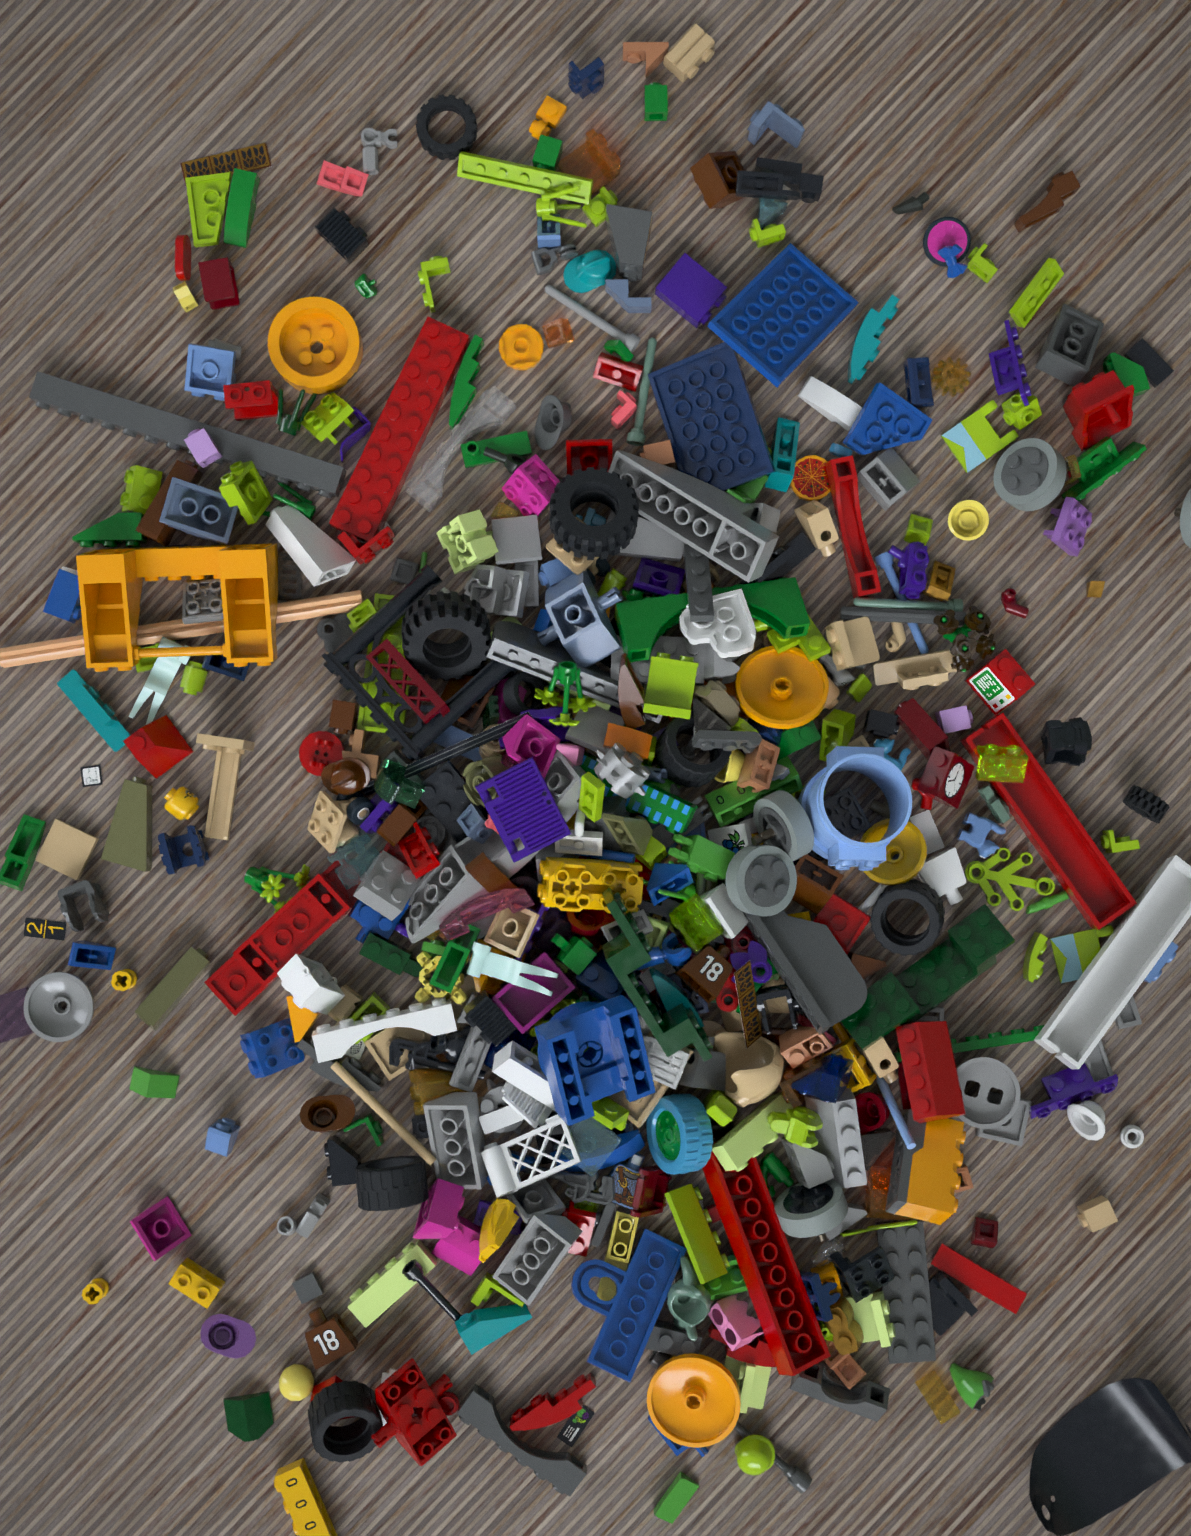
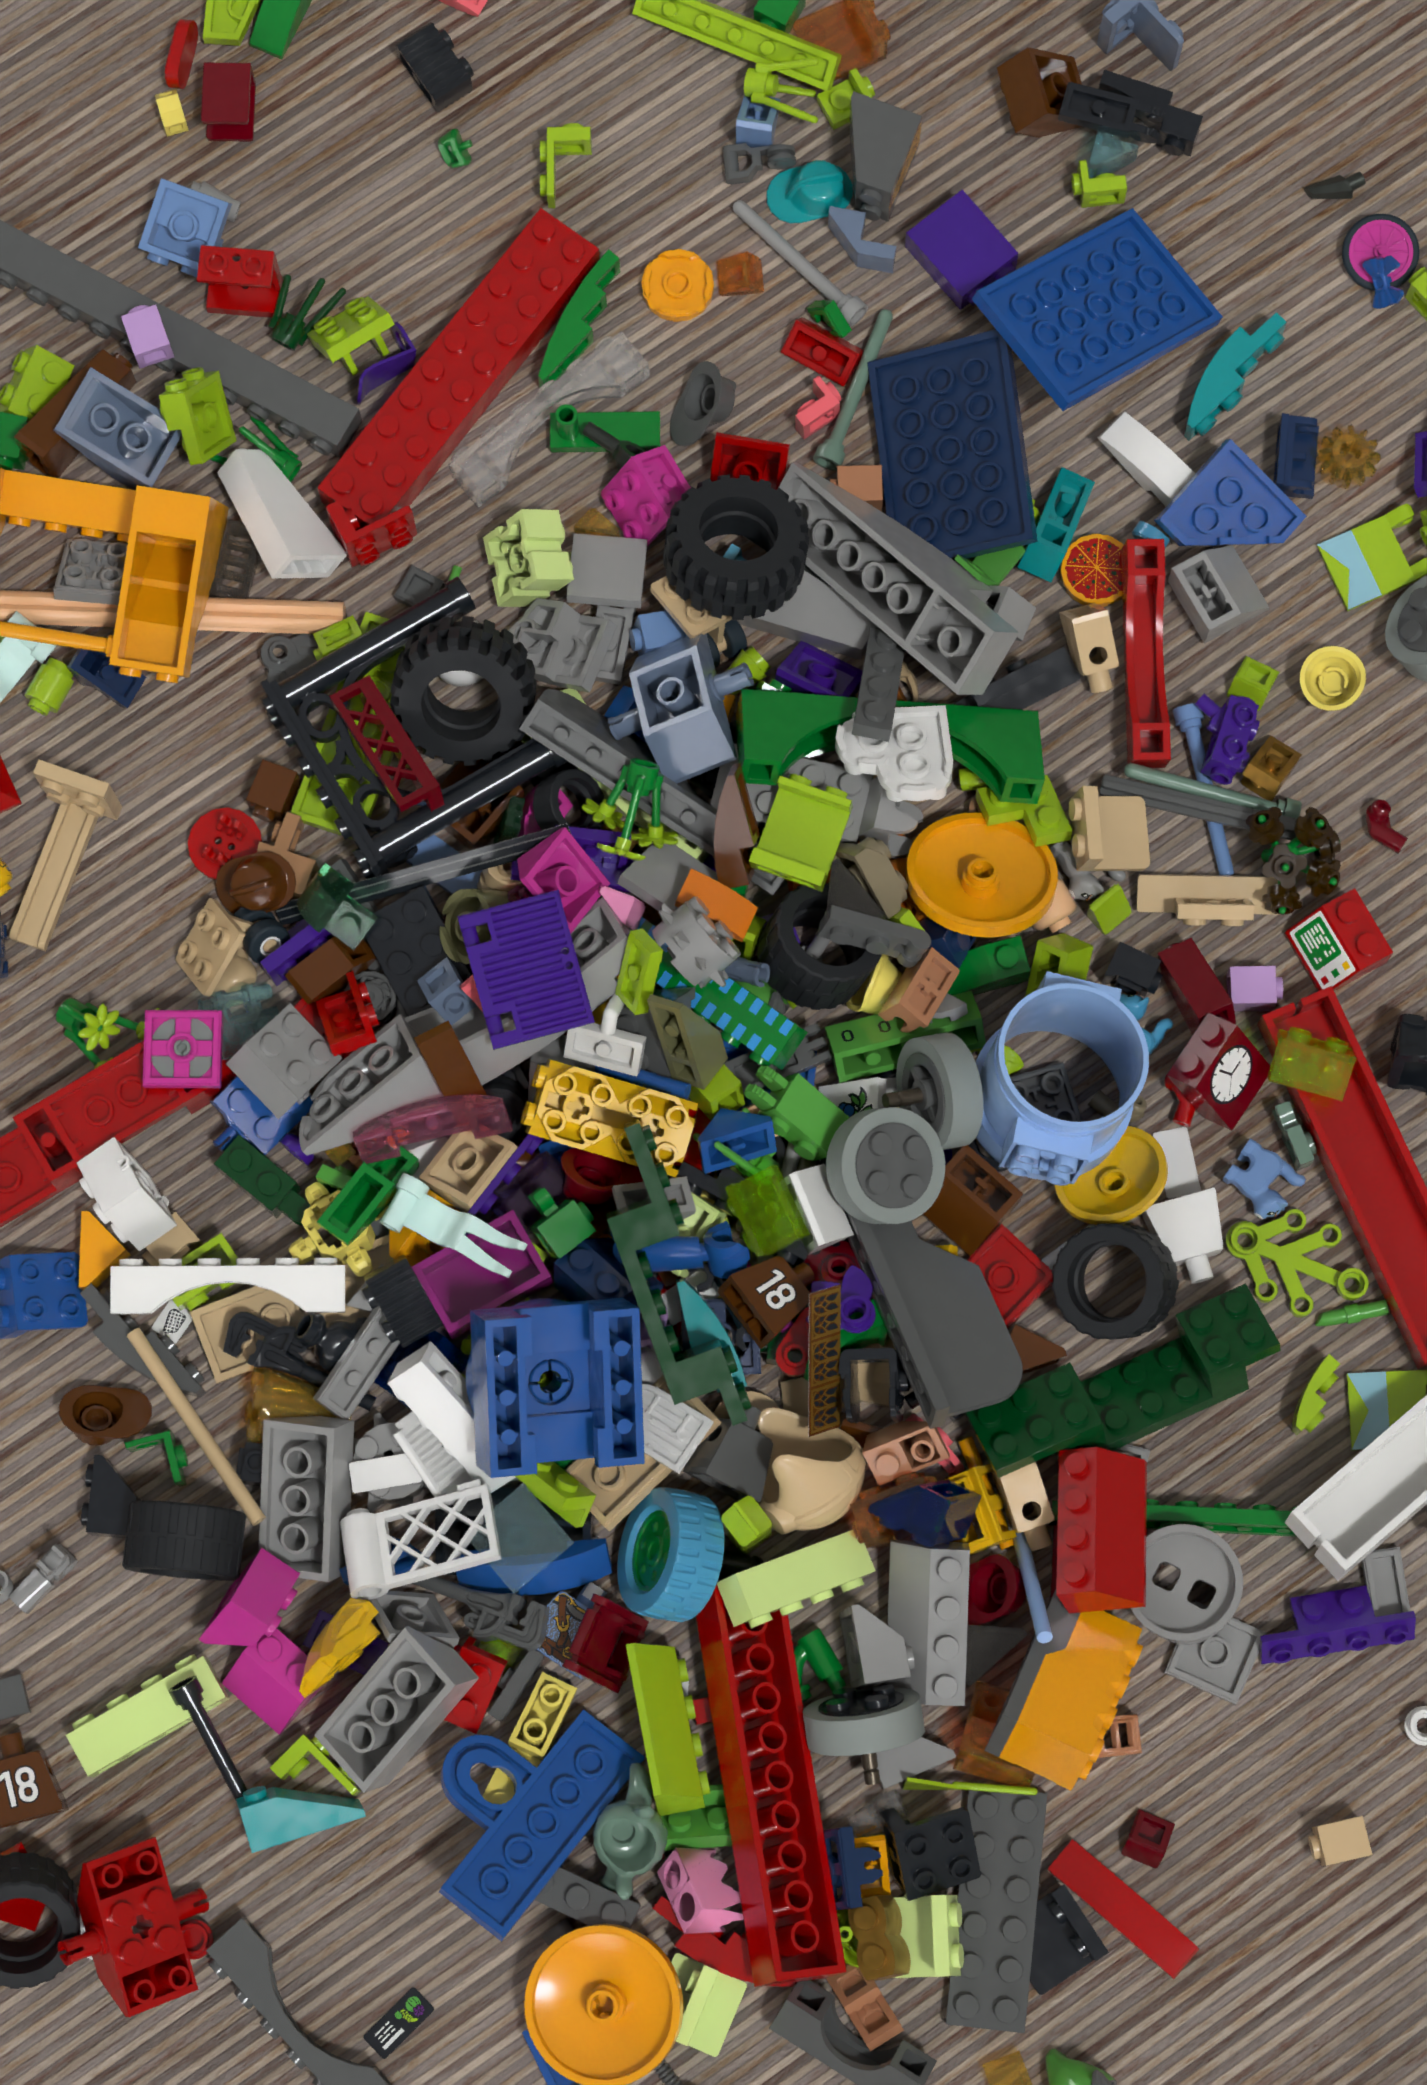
camera: 15 degrees right, 10 degrees down
(301, 326) = (347, 186): light orange brick -> none
(325, 892) = (183, 1049): none -> dark pink piece
(548, 1411) = (354, 1982): red slope -> none
(797, 1125) = (862, 1574): lime hinge -> none
(897, 639) = (1187, 844): tan arm -> none
(1087, 1119) = (1352, 1677): white hat -> none

